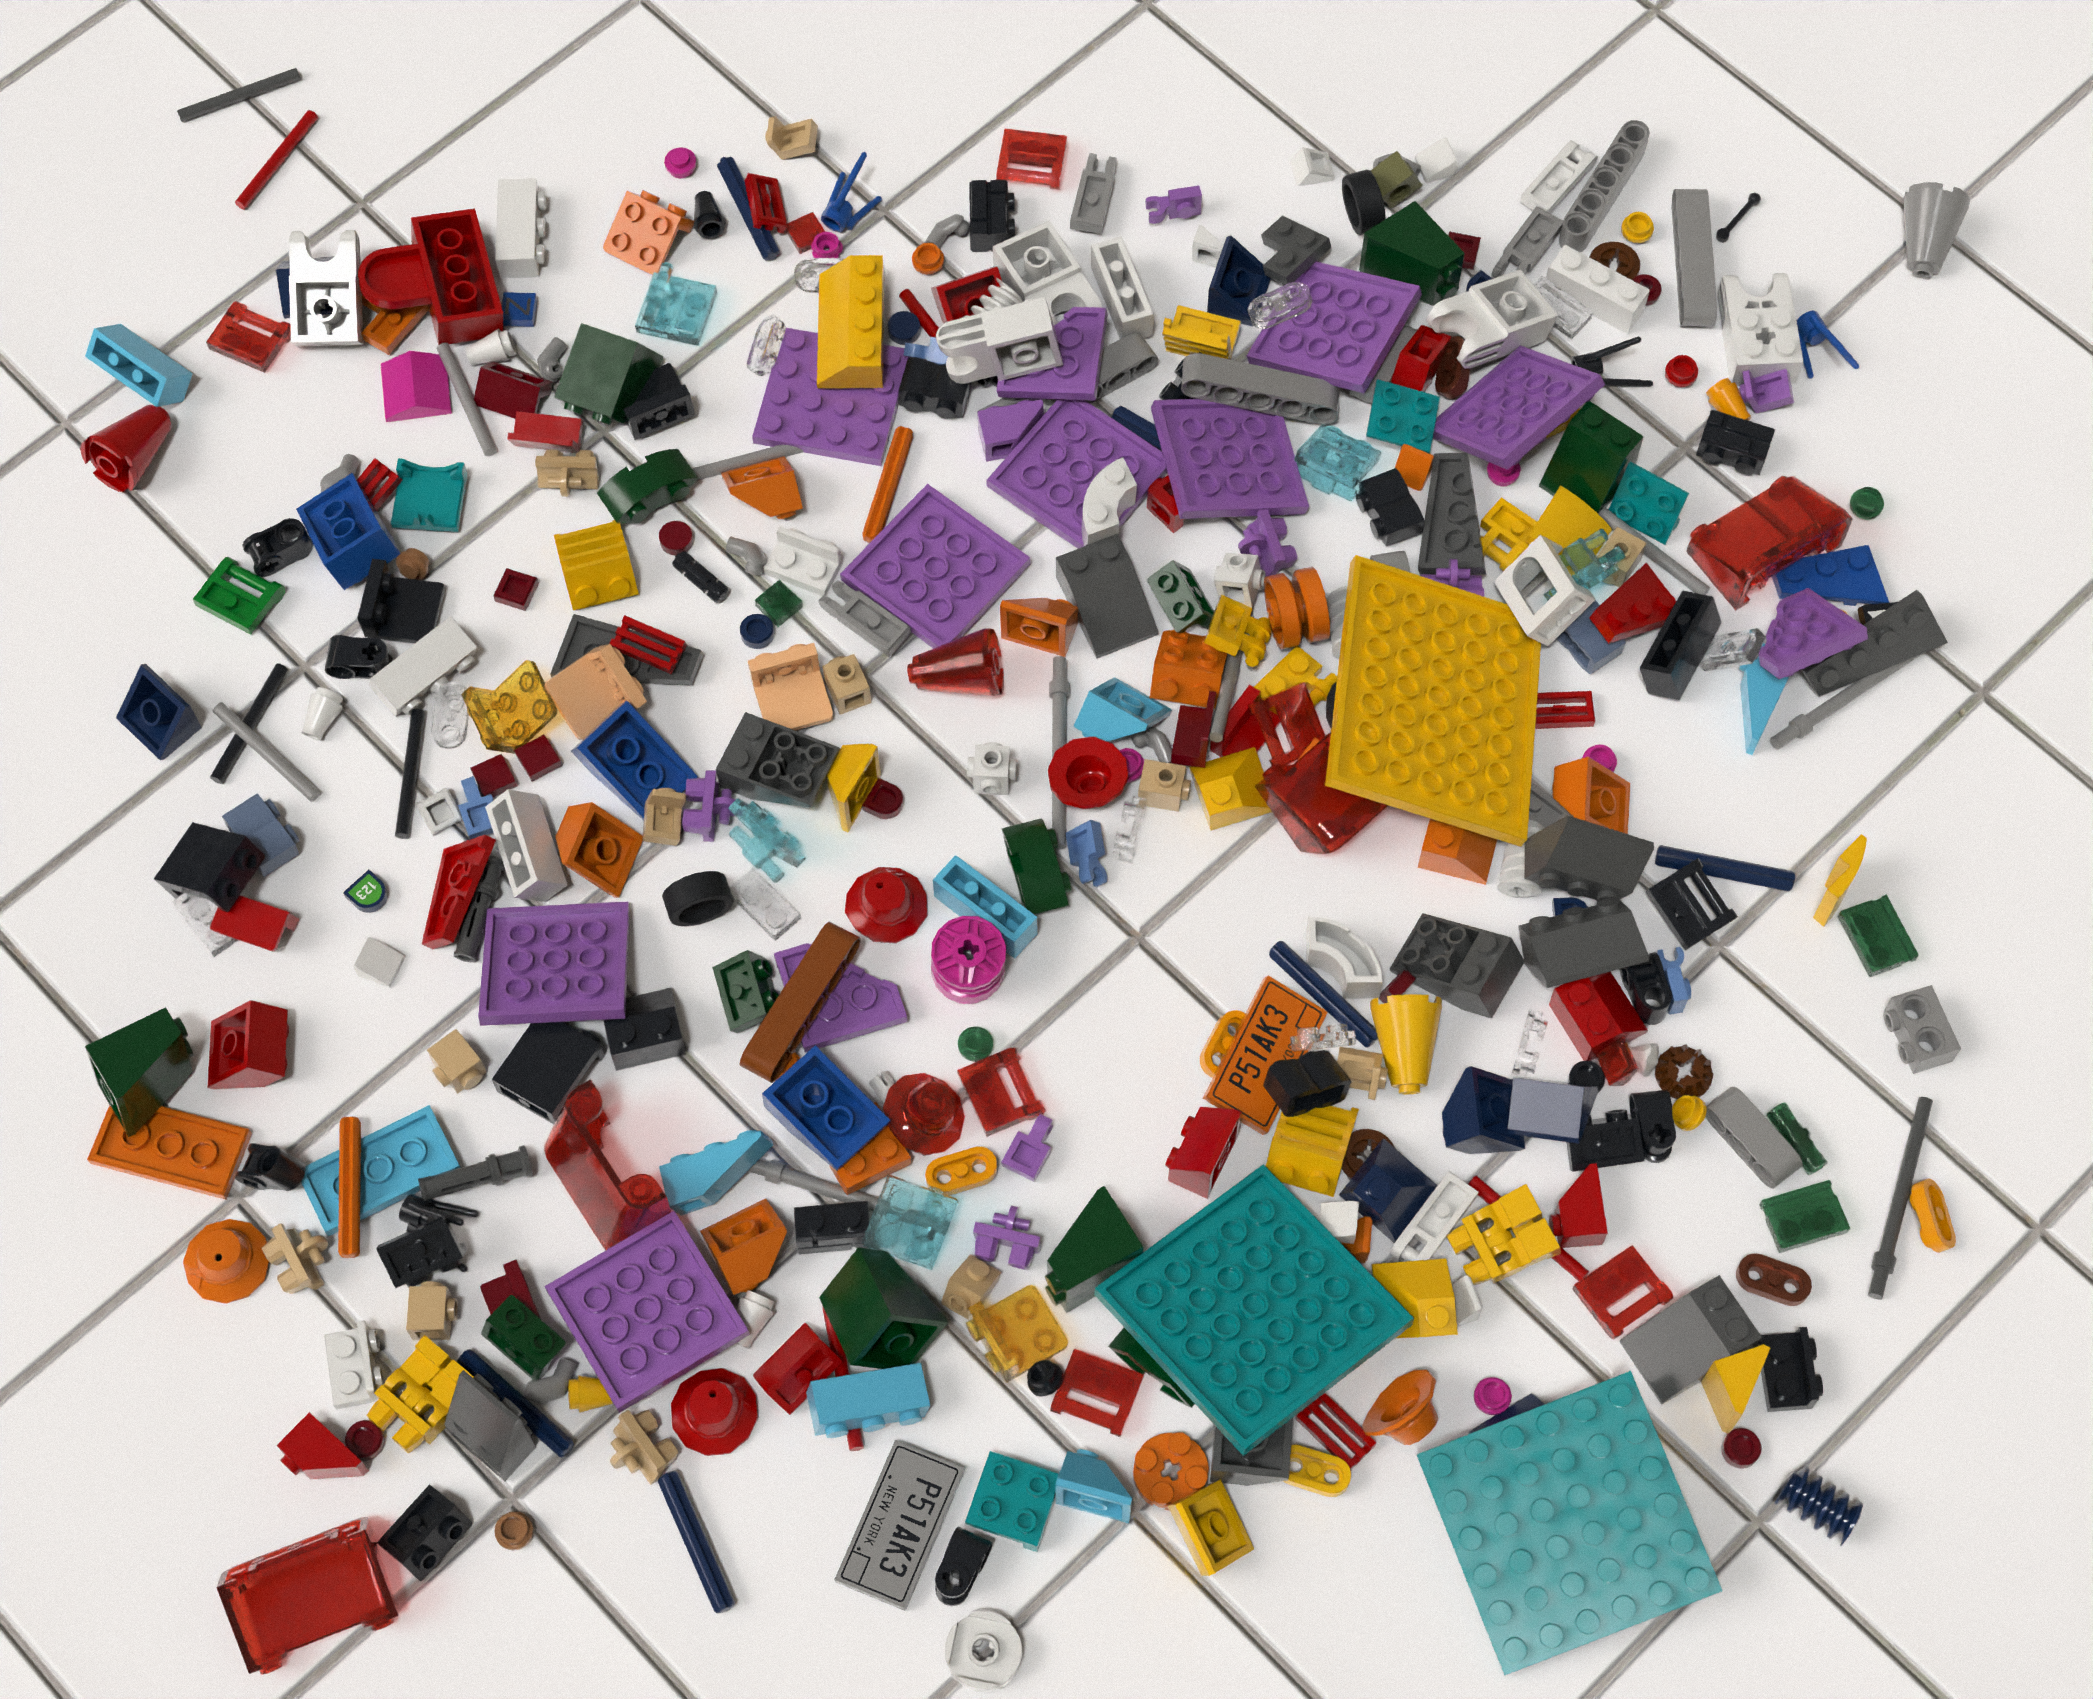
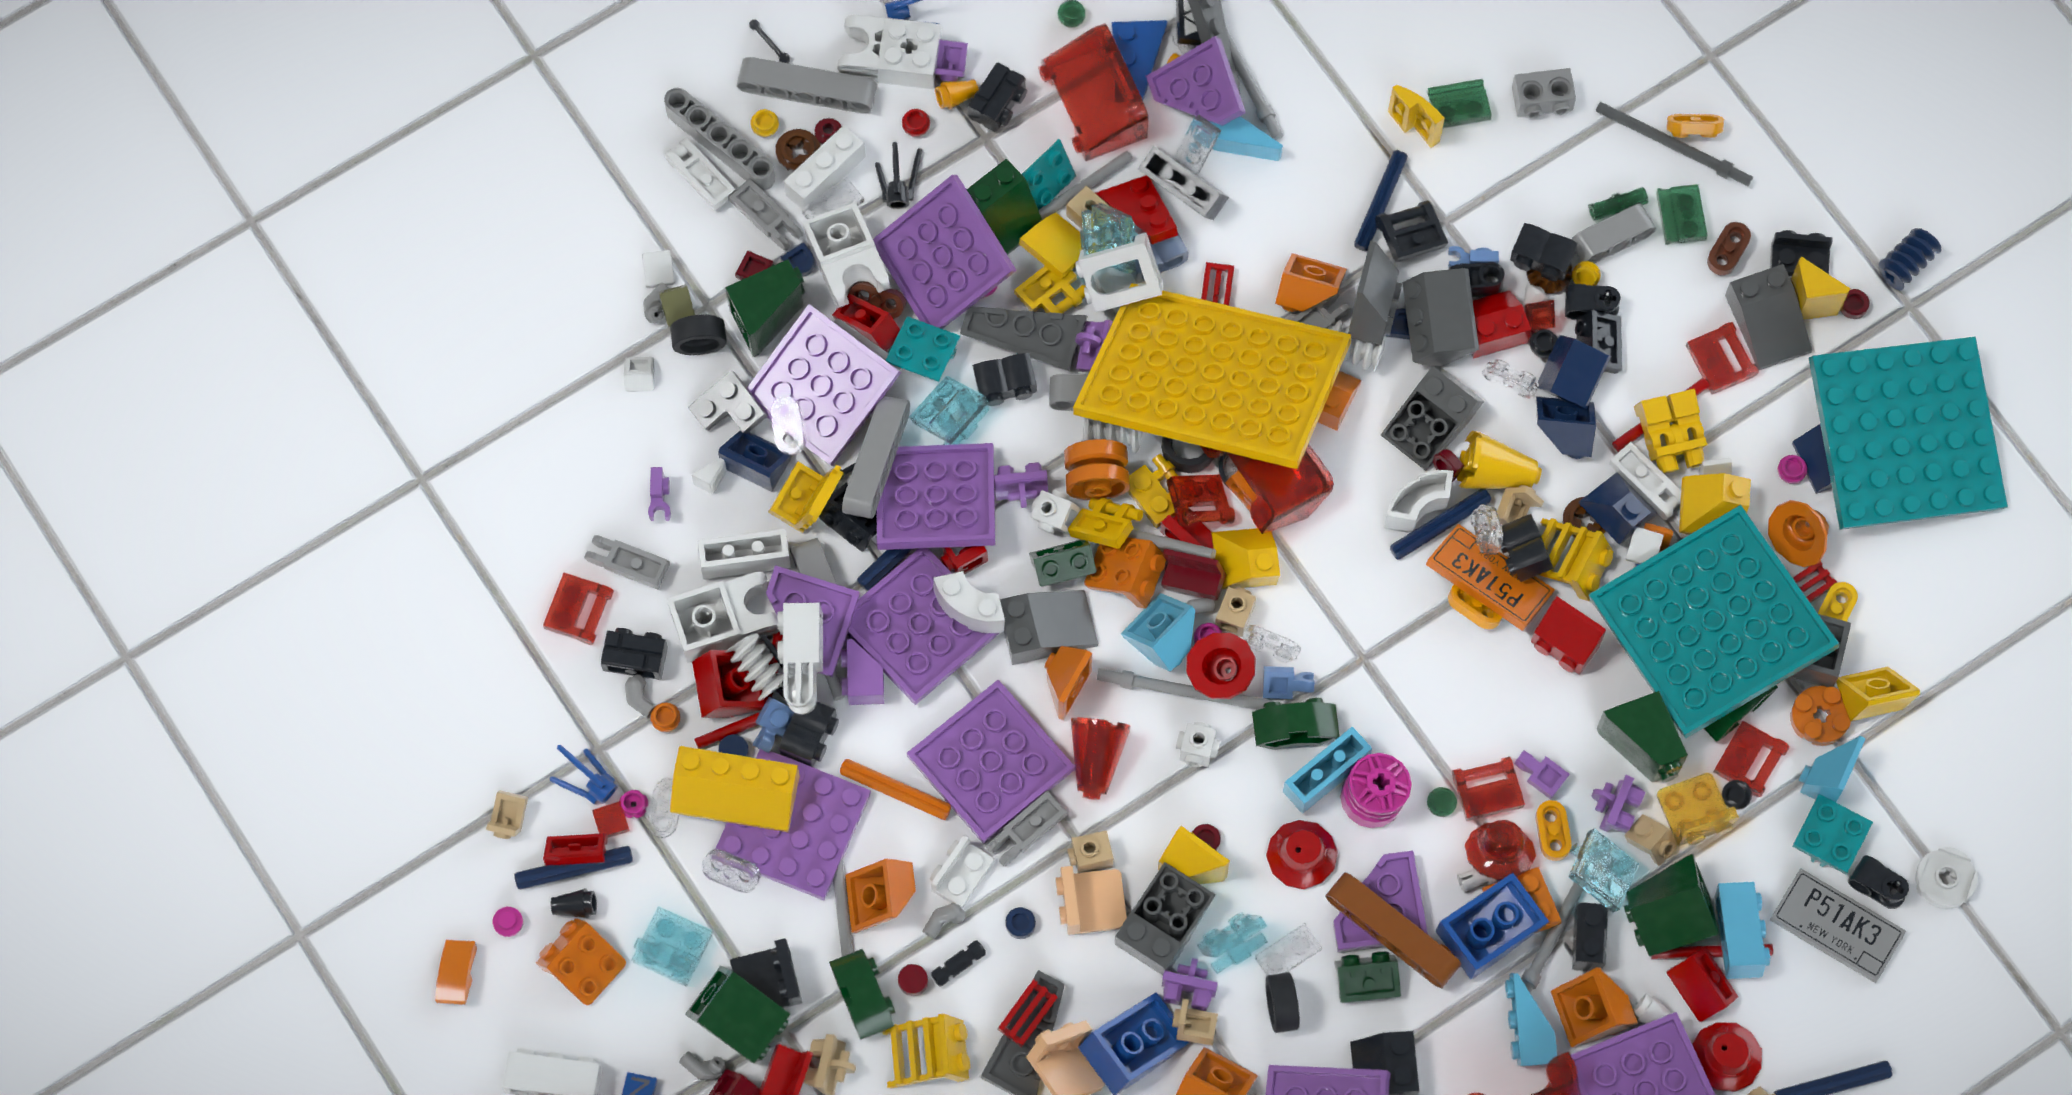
camera: 80 degrees left, 5 degrees up
(611, 123) = (454, 972): none -> orange slope
(778, 603) = (996, 900): clear green tile -> none
(1414, 466) = (968, 353): orange slope -> none
(1580, 1213) = (1654, 371): red slope -> none
(1602, 755) = (1270, 271): dark pink plate -> none
(1700, 1050) = (1543, 252): none -> black brick

